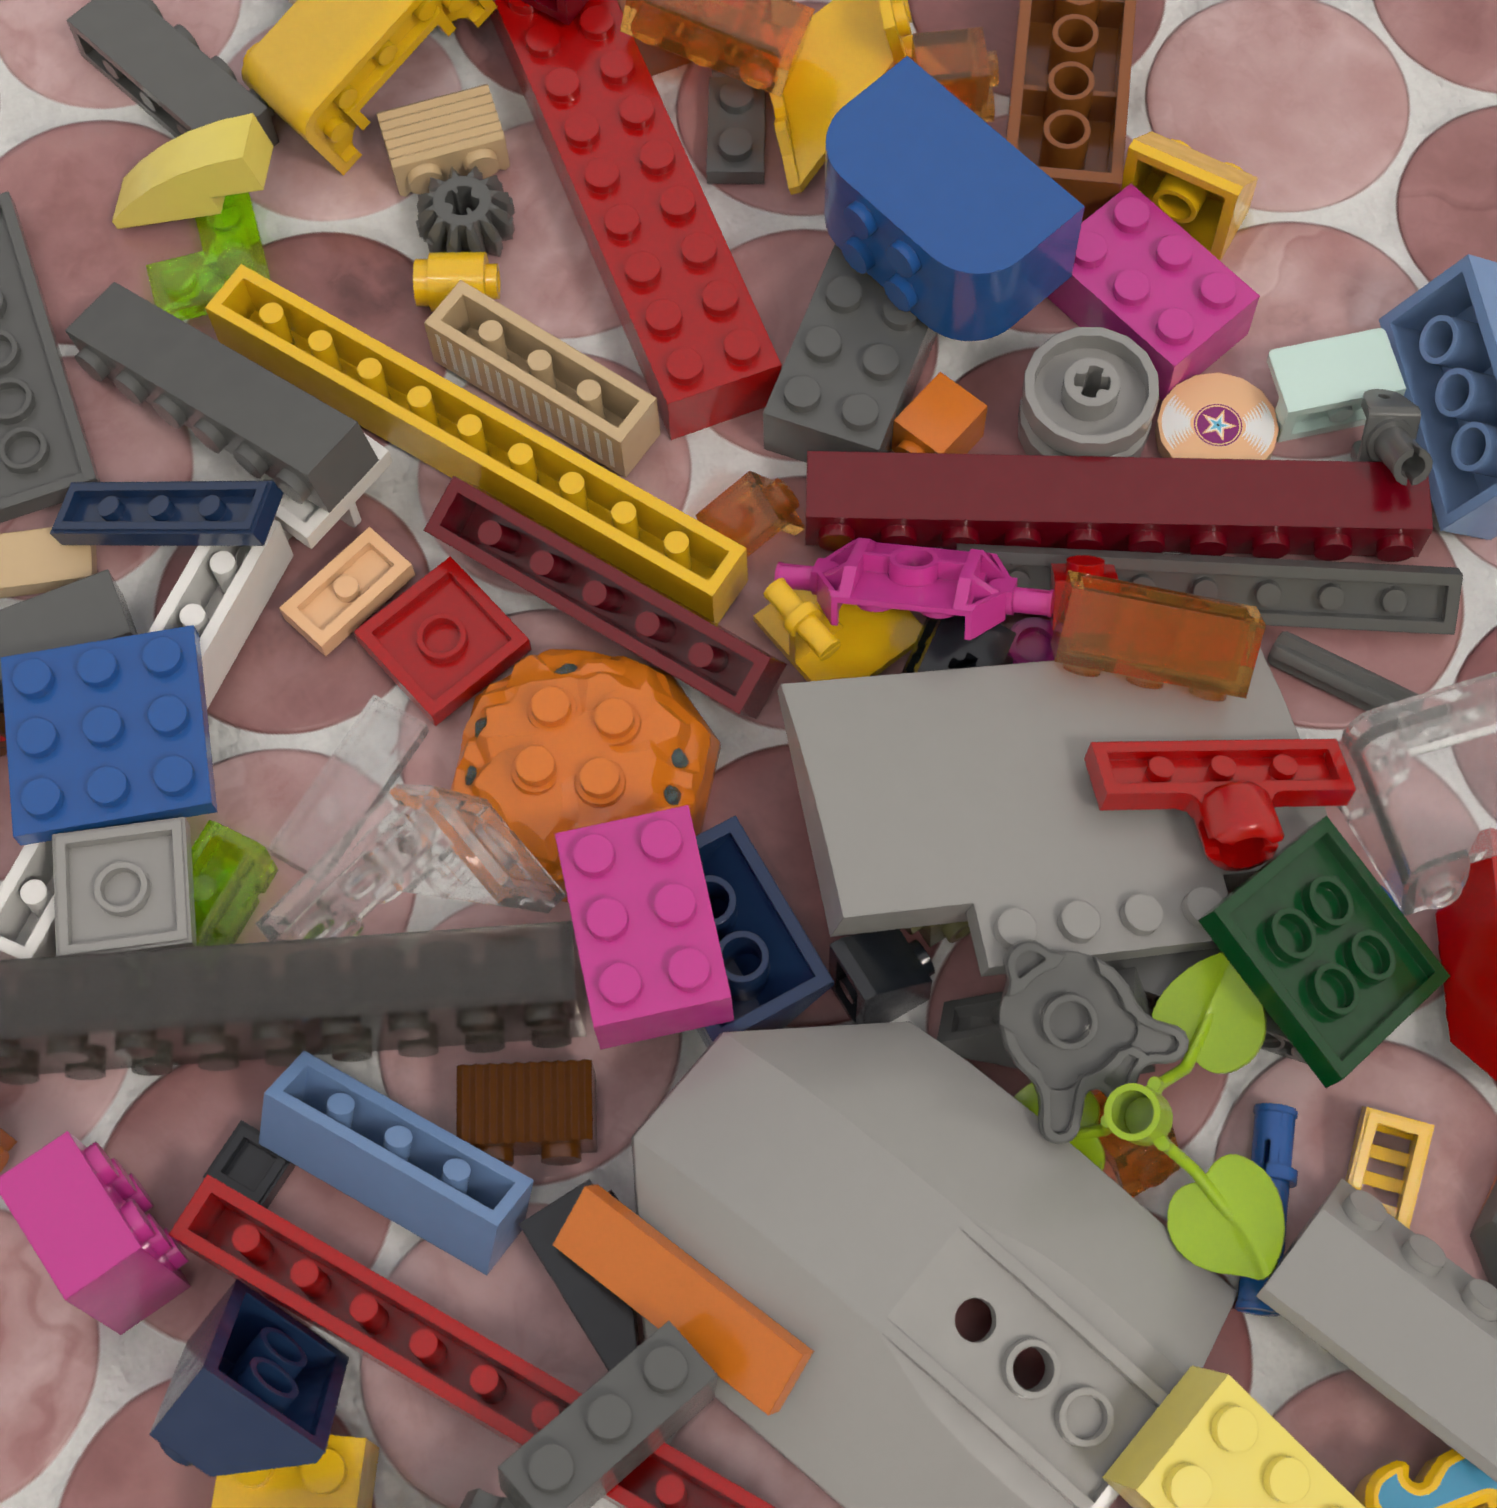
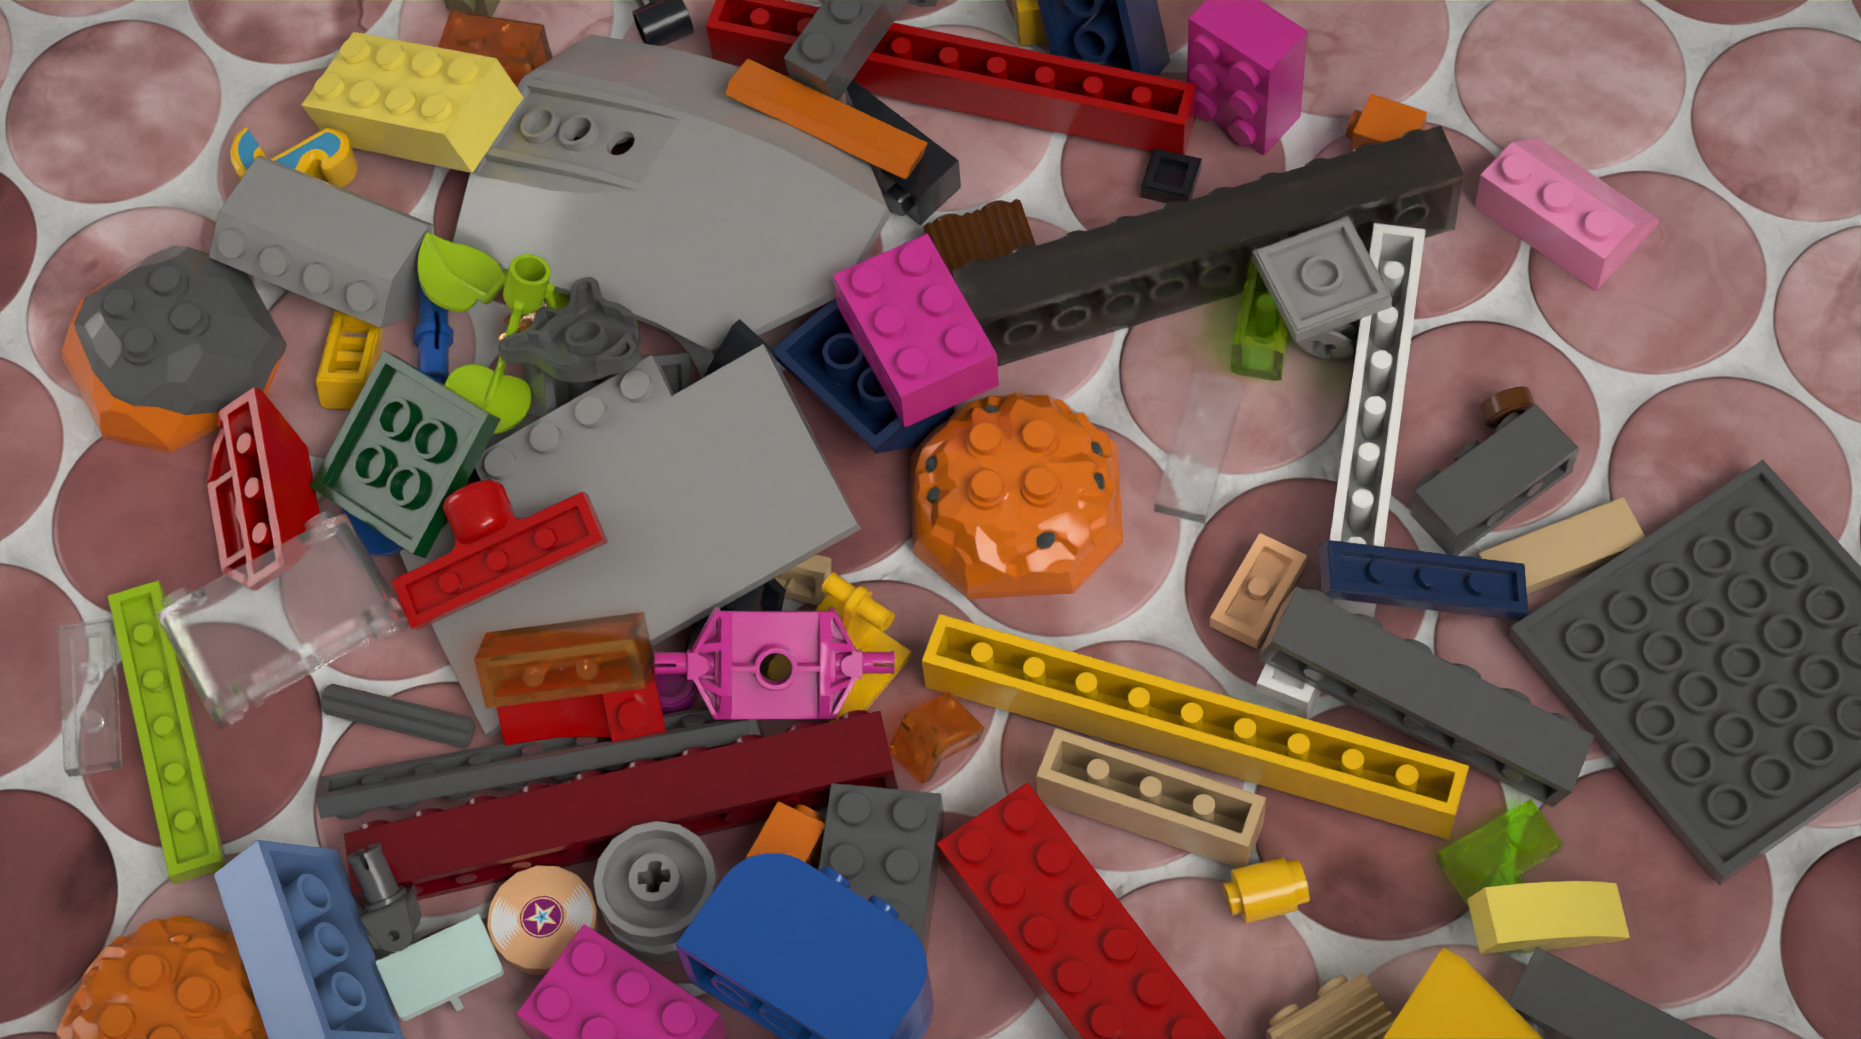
camera: 170 degrees right, 5 degrees down
(107, 734) = (1385, 385): blue plate -> none
(395, 1161) = (1057, 180): medium blue brick -> none
(416, 844) = (1090, 348): clear bracket -> none
(443, 640) = (1163, 569): red plate -> none
(465, 214) = (1300, 950): dark grey gear -> none
(605, 598) = (931, 580): dark red brick -> none

